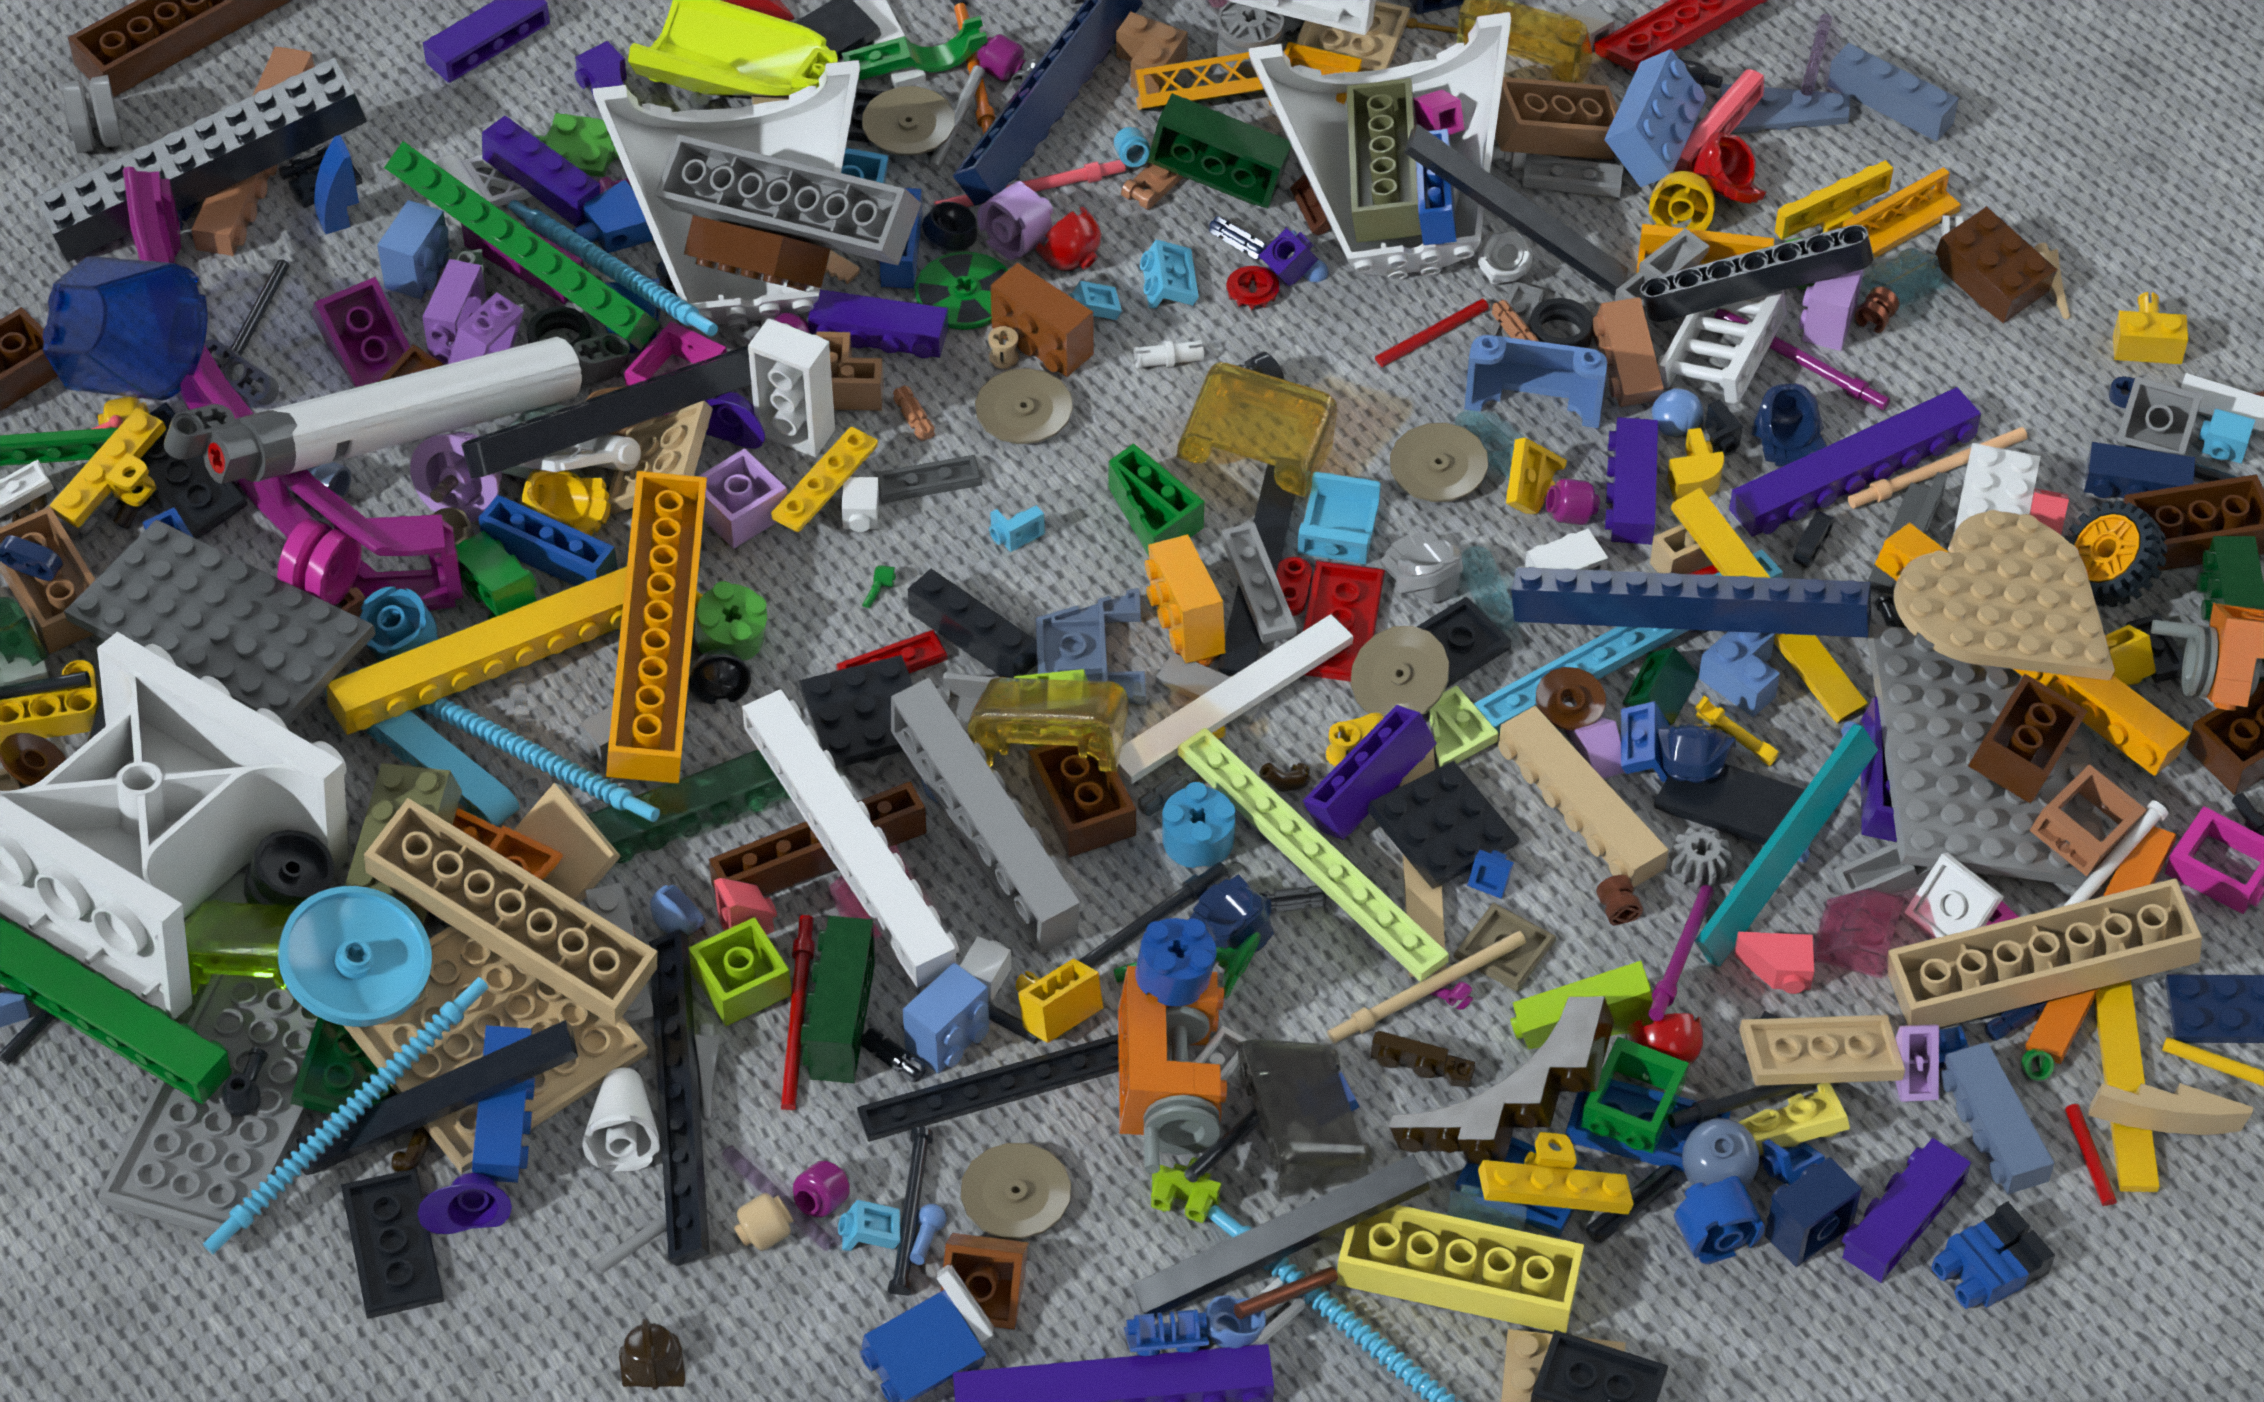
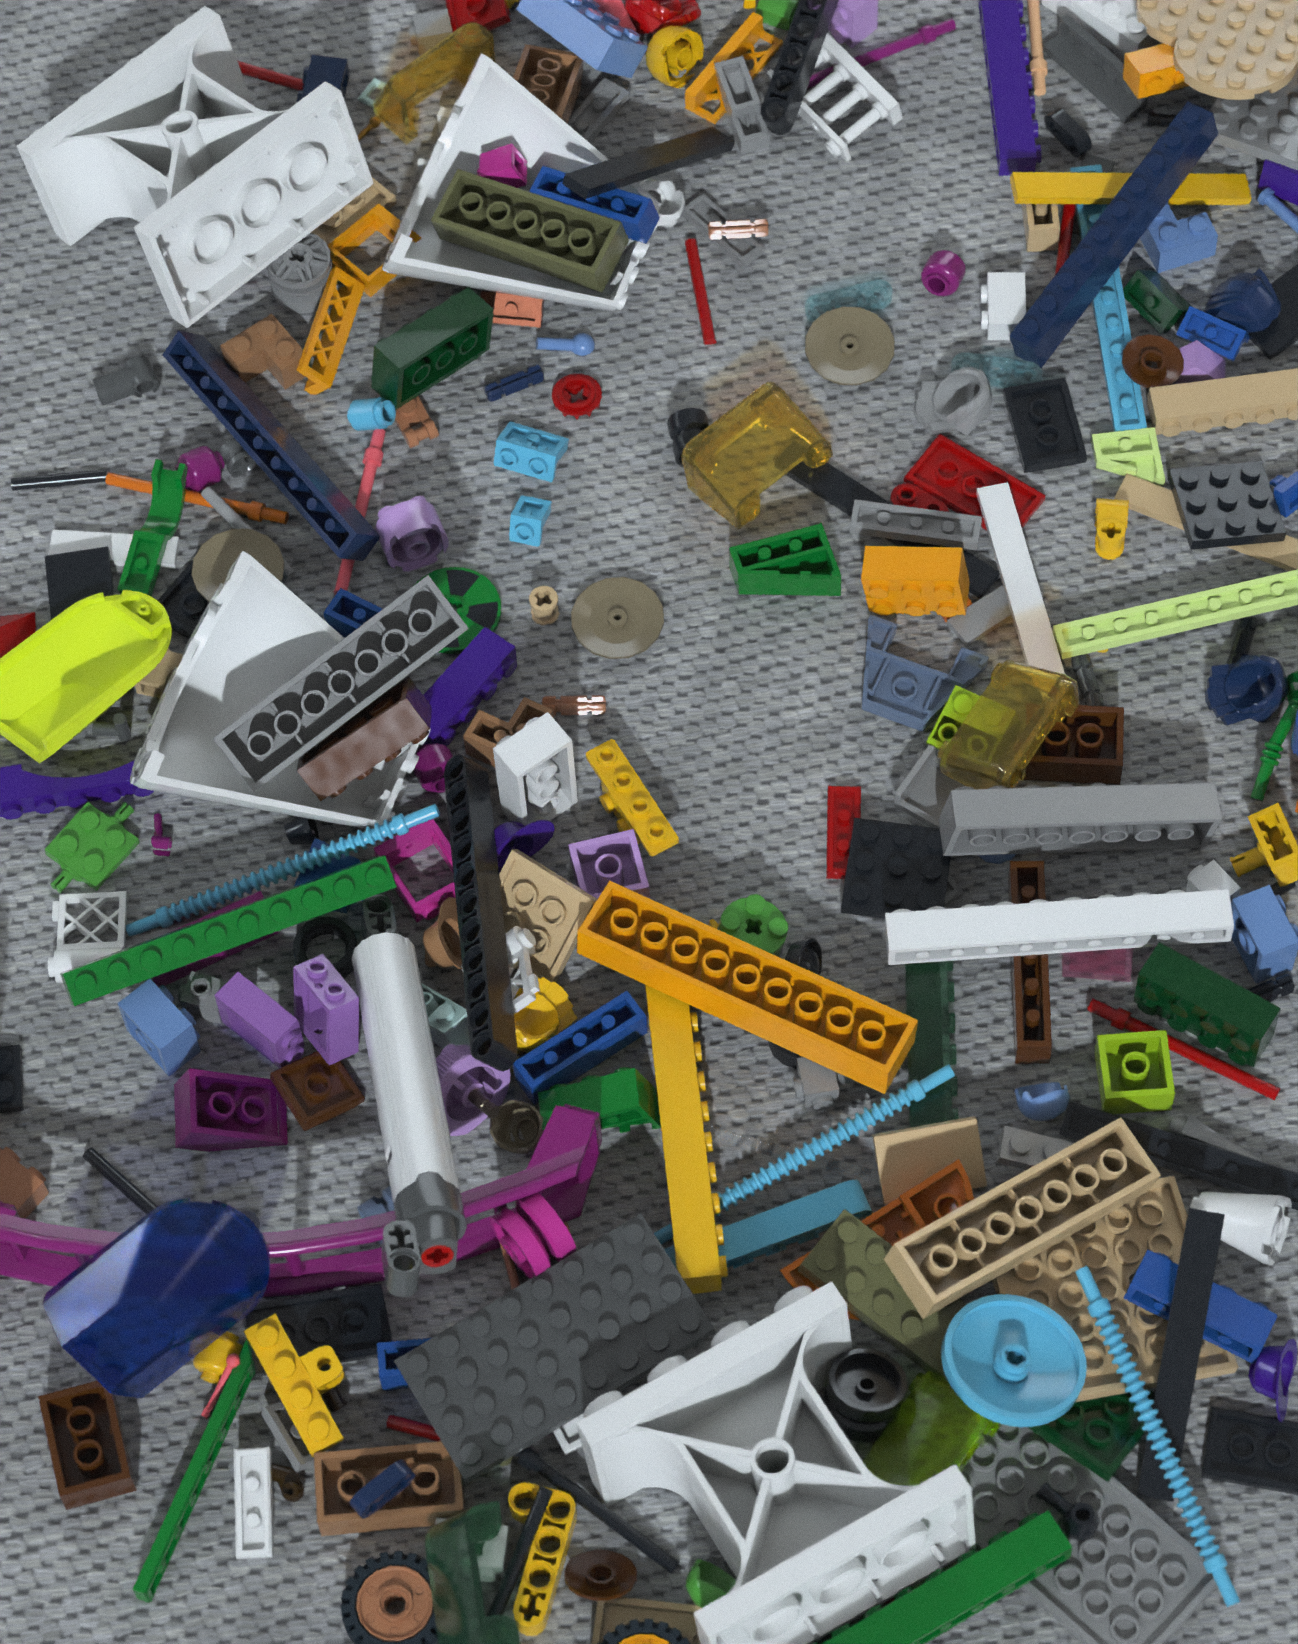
camera: 60 degrees left, 10 degrees up
(335, 187) = (47, 1063): blue slope -> none
(399, 622) = (599, 1192): dark azure brick -> none
(415, 1151) = (1199, 1409): dark brown arm -> none
(538, 169) = (119, 886): dark purple brick -> none
(615, 219) = (211, 848): blue torso -> none
(741, 902) = (1072, 1047): coral slope -> none
(860, 503) = (664, 783): white brick -> none
(882, 577) = (750, 798): green hand -> none
(928, 478) = (654, 724): dark grey tile -> none
(950, 226) = (375, 585): black hat -> none
(972, 625) = (847, 753): black brick -> none
(1018, 530) = (755, 681): medium azure bracket -> none
(1045, 319) = (542, 556): dark orange brick -> none
(1072, 242) = (458, 498): red cylinder -> none
(1168, 354) = (618, 487): white pin -> none
(1192, 888) = (1198, 707): black bar -> none
(1198, 826) = (1146, 674): dark azure brick -> none
(1281, 247) = (565, 365): dark purple brick -> none
(1295, 779) = (1123, 587): dark brown arm -> none
(1339, 517) = (870, 442): medium azure panel -> none
(1369, 771) = (1159, 529): dark purple brick -> none
(1400, 669) = (1081, 451): dark tan piece -> none
(1531, 475) = (914, 298): yellow wing -> none
(1537, 369) = (833, 208): medium blue windscreen -> none
(1564, 310) = (754, 181): black tyre -> none
(1625, 341) = (812, 165): nougat wedge -> none
(1633, 481) = (944, 222): dark purple brick -> none
(1677, 412) = (886, 162): medium blue hair -> none
(1698, 469) = (959, 173): yellow brick -> none
(1717, 719) = (1214, 275): yellow bar -> none
(1723, 428) = (923, 137): black bracket -> none
(1788, 424) = (948, 95): dark blue hair -> none

